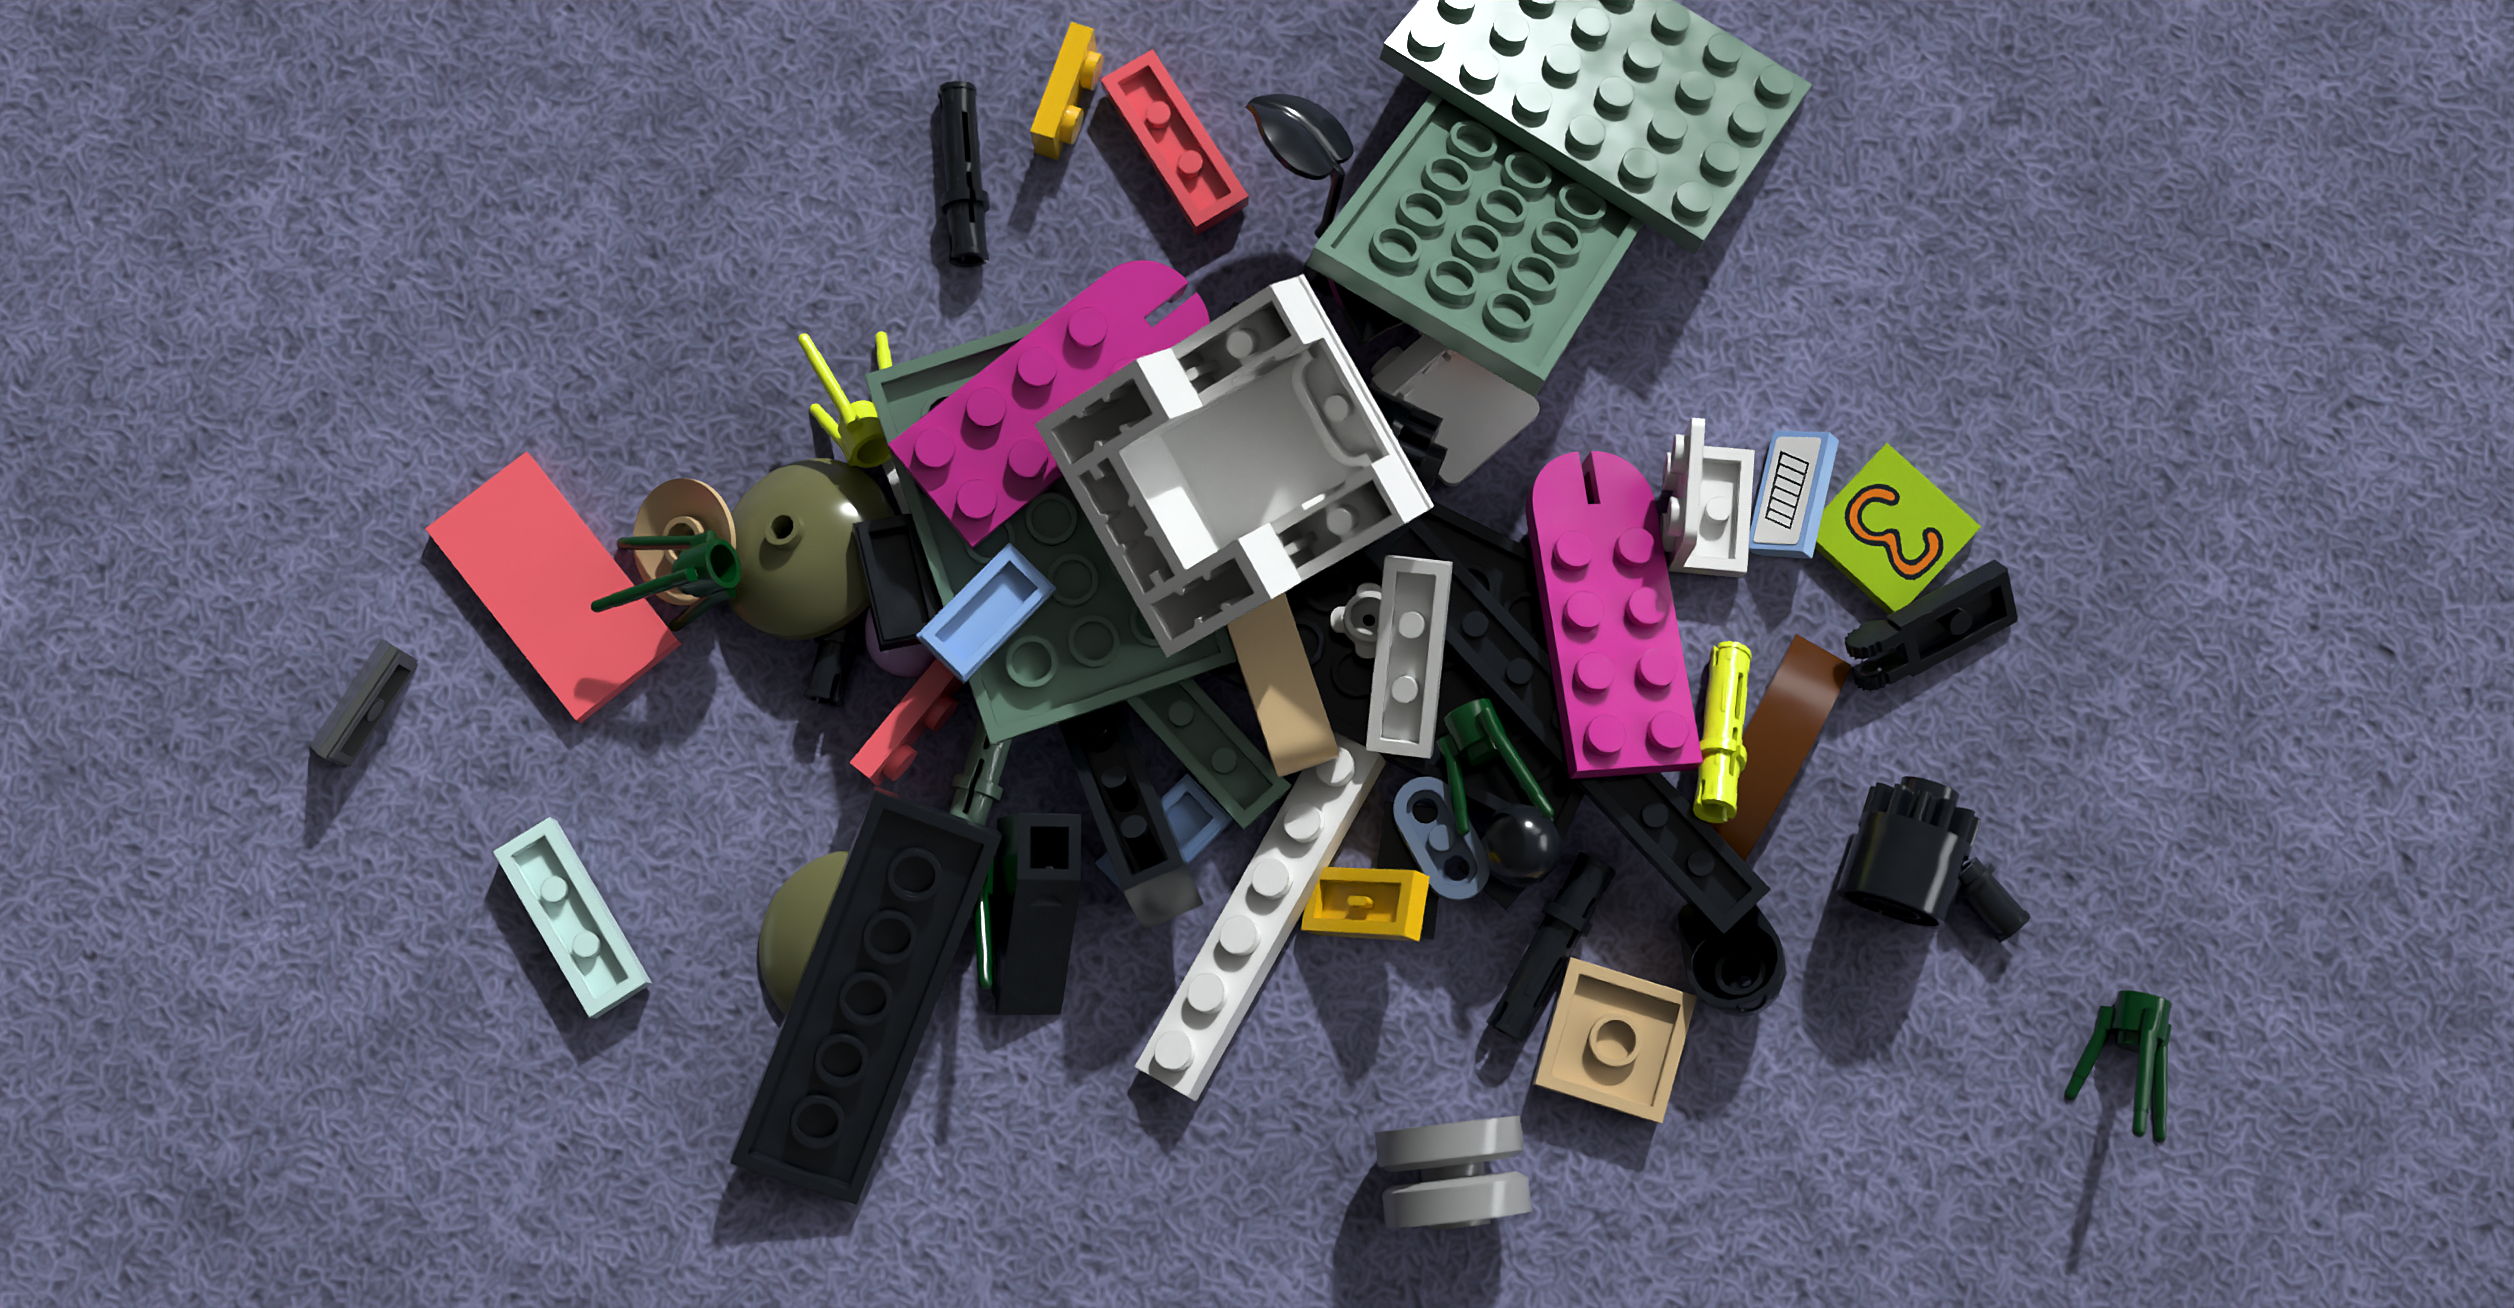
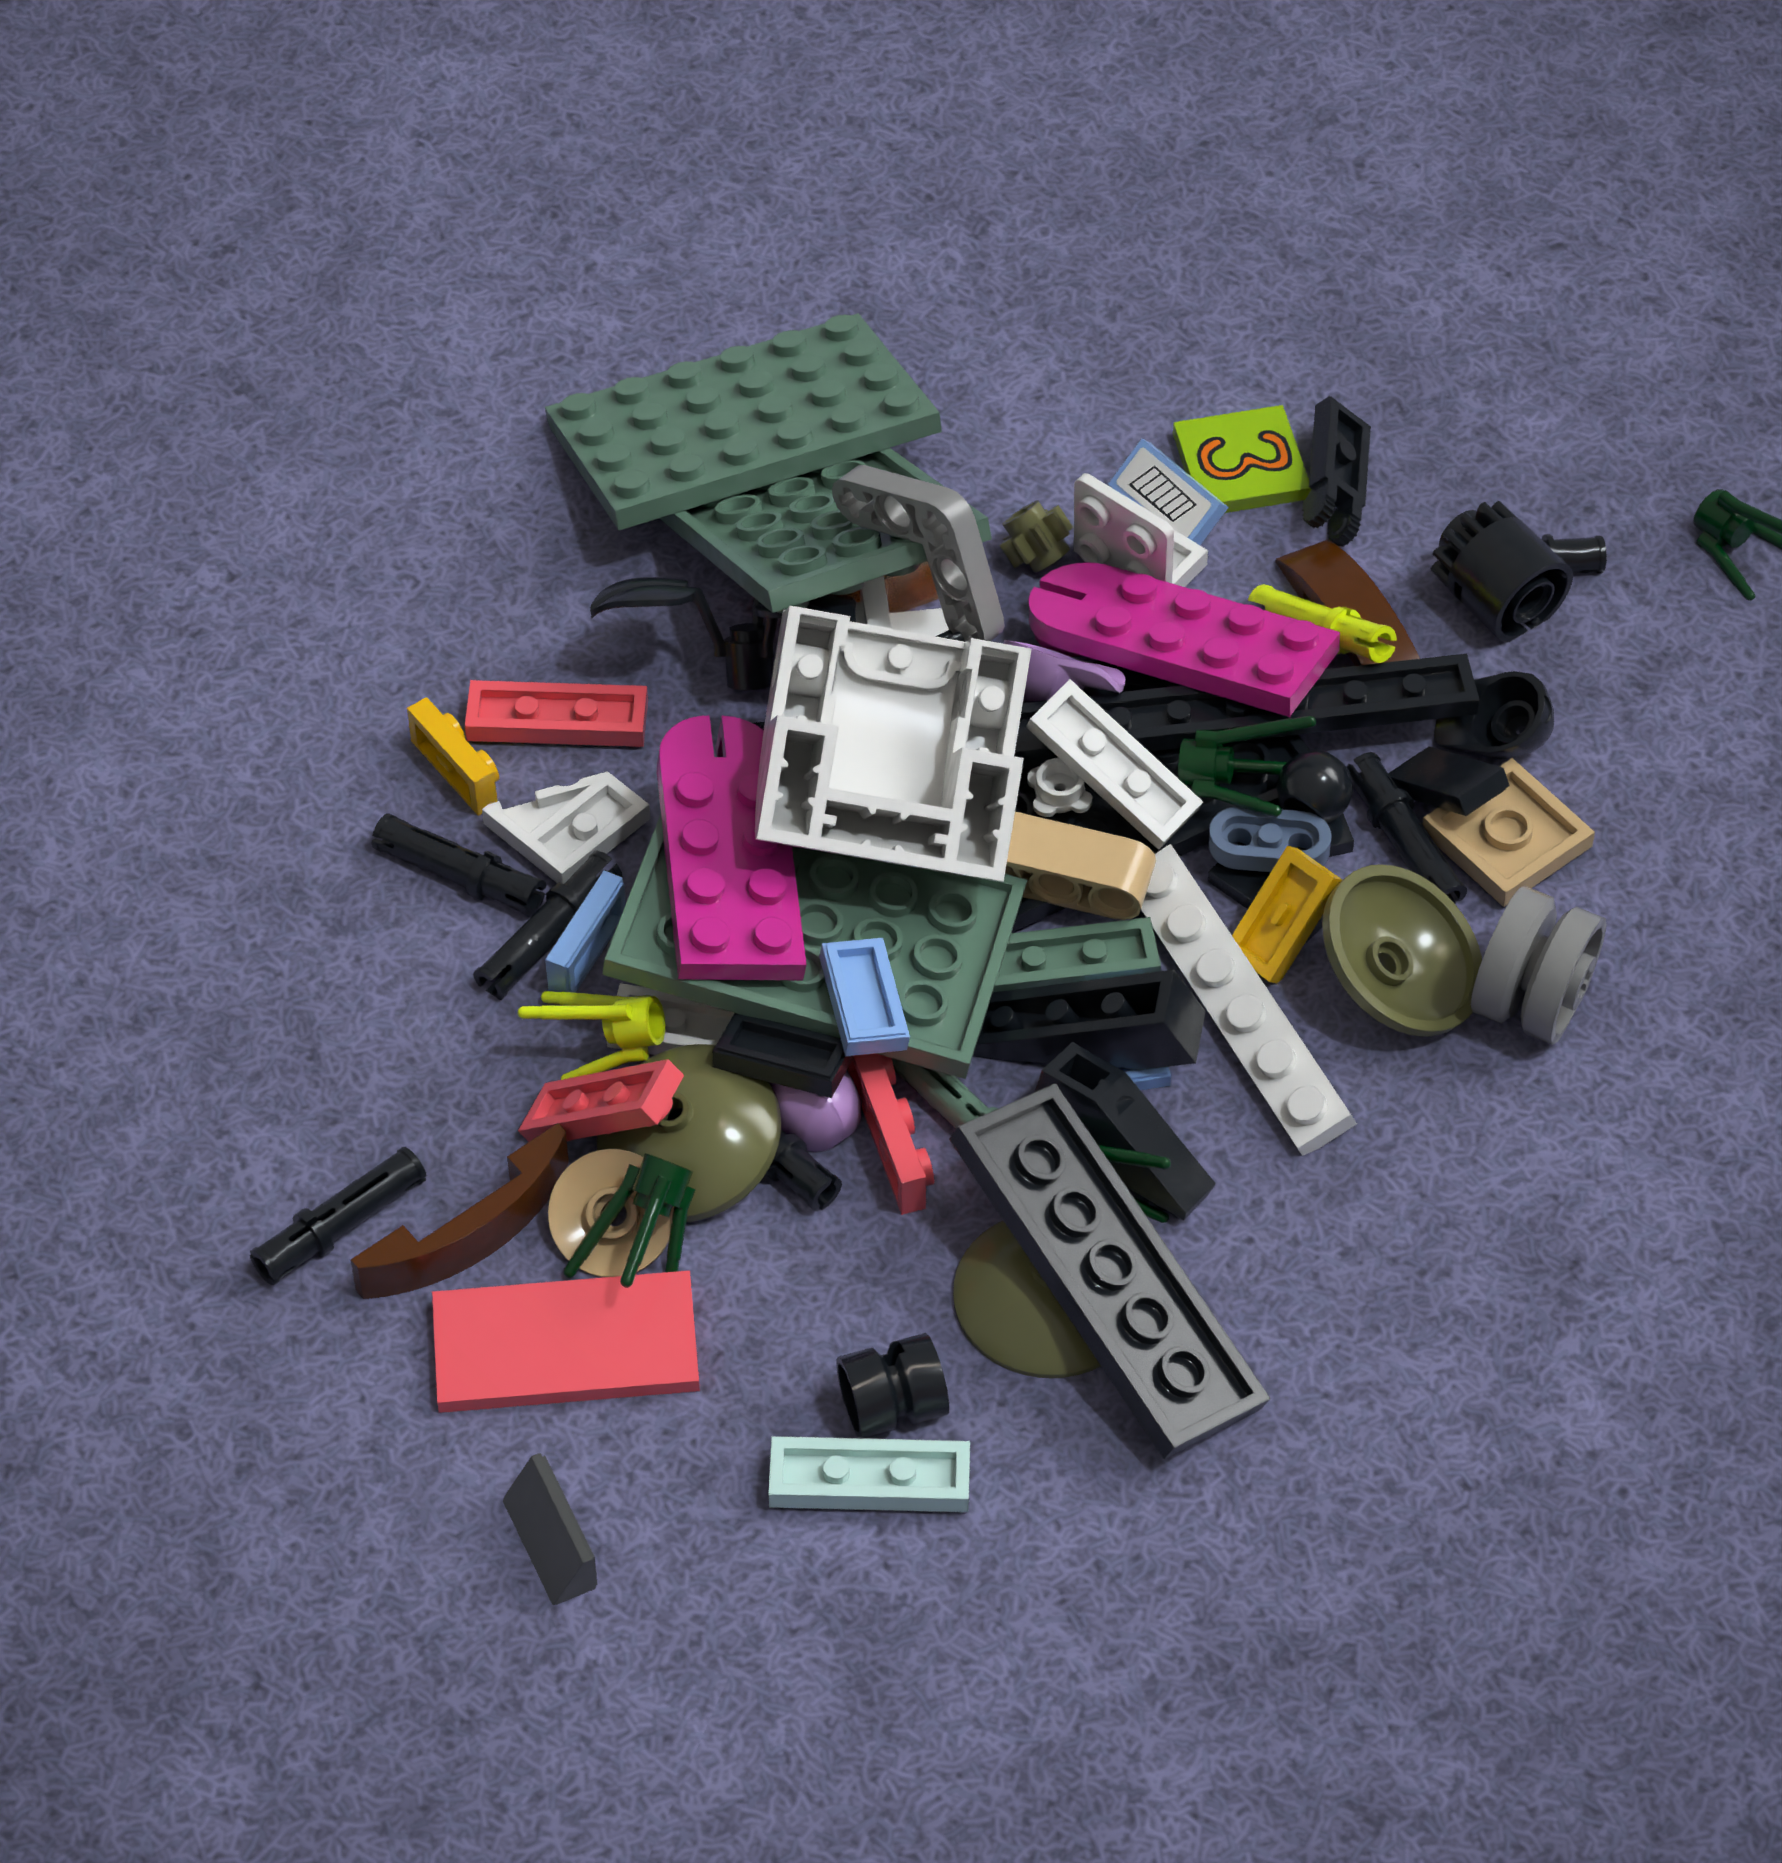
camera: 55 degrees left, 25 degrees down
(485, 310) = (318, 1229): none -> black pin
(651, 877) = (893, 1385): none -> black wheel
(678, 455) = (404, 1264): none -> reddish brown slope
(761, 466) = (605, 1101): none -> coral plate
(947, 327) = (586, 934): none -> light blue tile
(949, 289) = (542, 928): none -> black pin
(1060, 231) = (569, 823): none -> white wing
(1414, 1061) = (1401, 950): none -> olive dish
(1484, 346) = (948, 533): none -> light grey beam
(1489, 534) = (1052, 669): none -> lavender cap
(1624, 955) = (1449, 780): none -> black tile
(1653, 411) = (1036, 536): none -> olive gear

